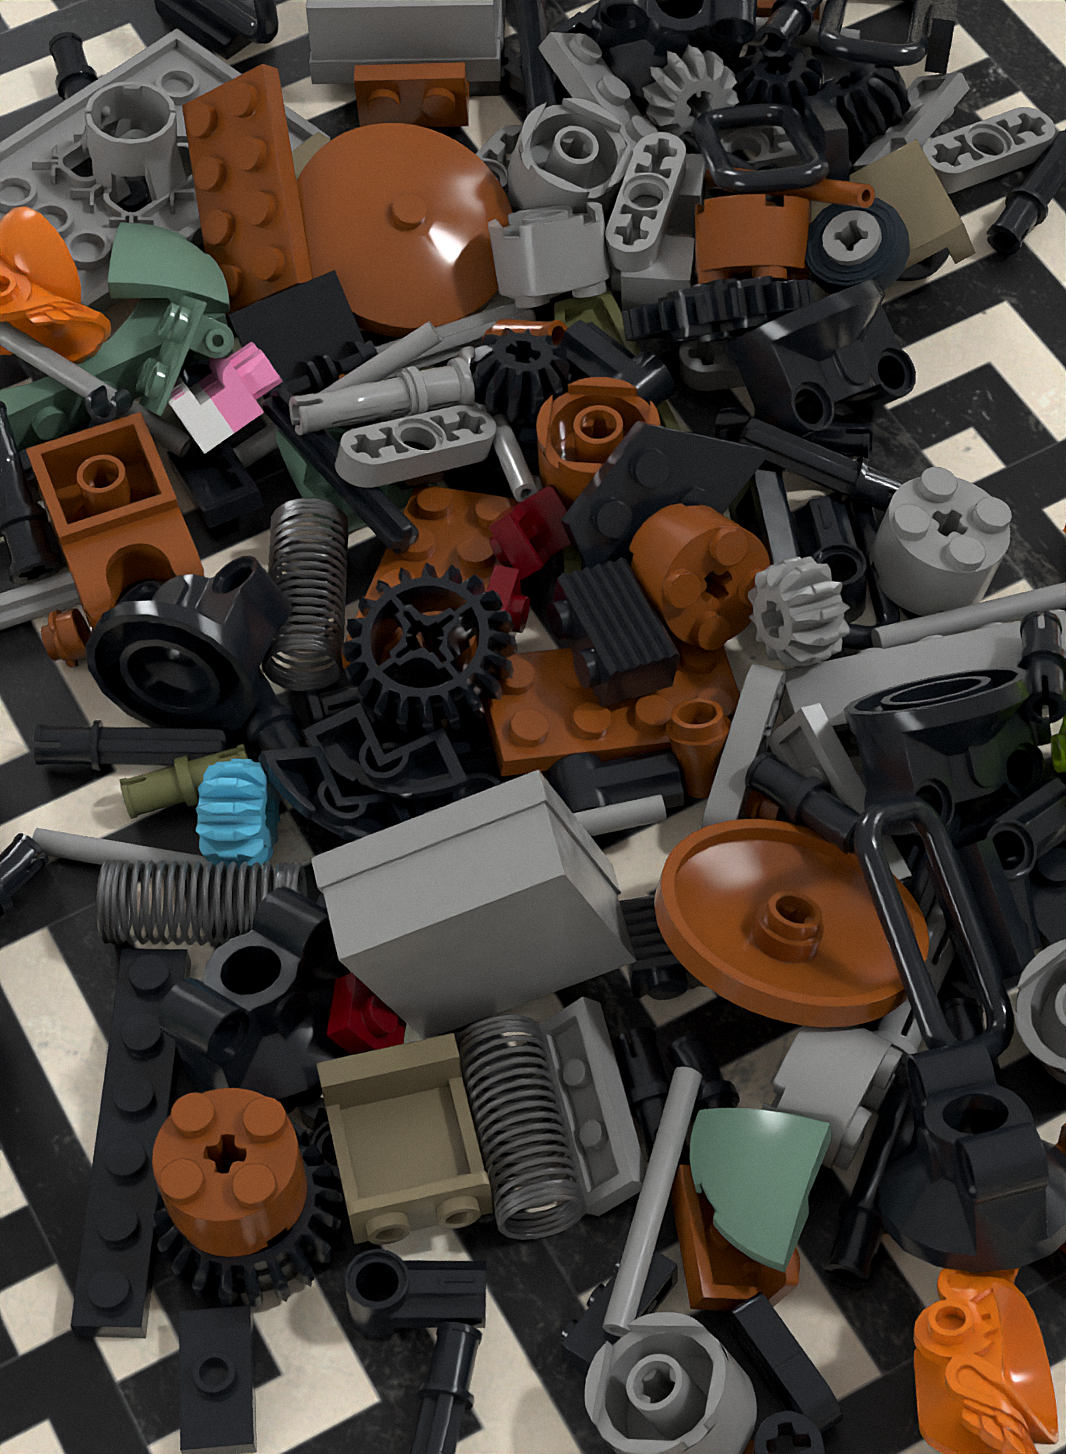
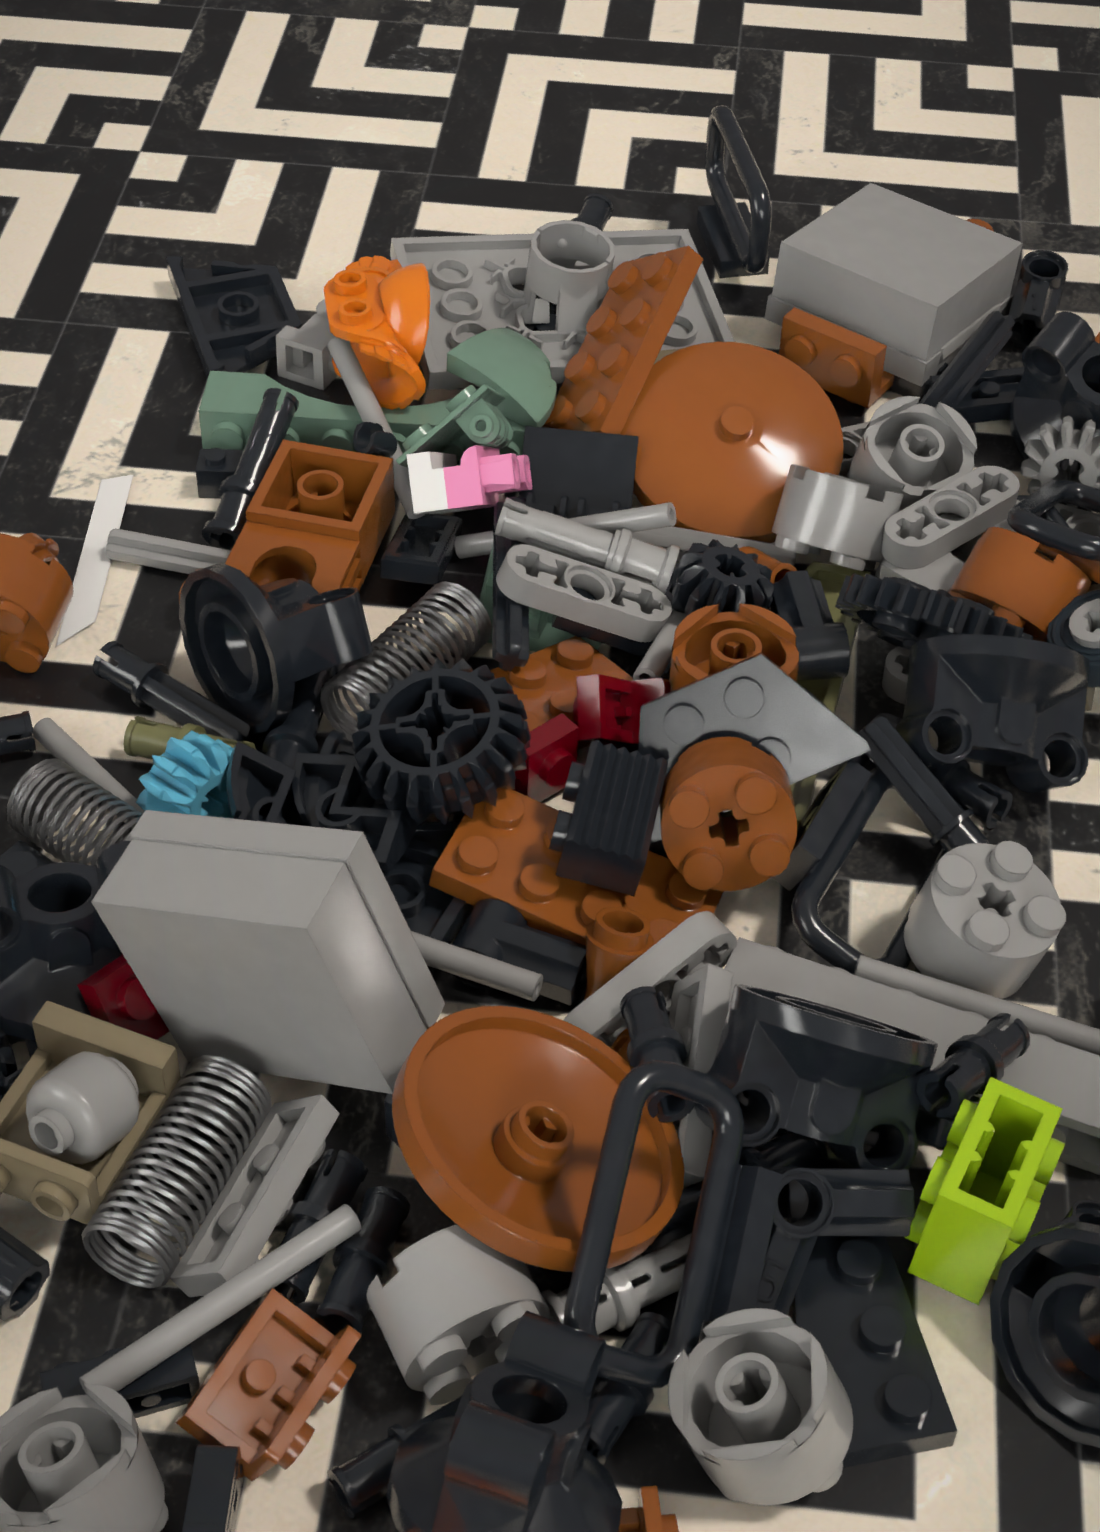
camera: 30 degrees right, 10 degrees down
(424, 1126) = (82, 1107): none -> light grey head
(586, 76) = (991, 412): light grey plate -> none
(758, 1176) = (315, 1335): sand green brick -> none
(798, 612) = (783, 889): light grey gear -> none
(828, 538) = (877, 885): black piece -> none

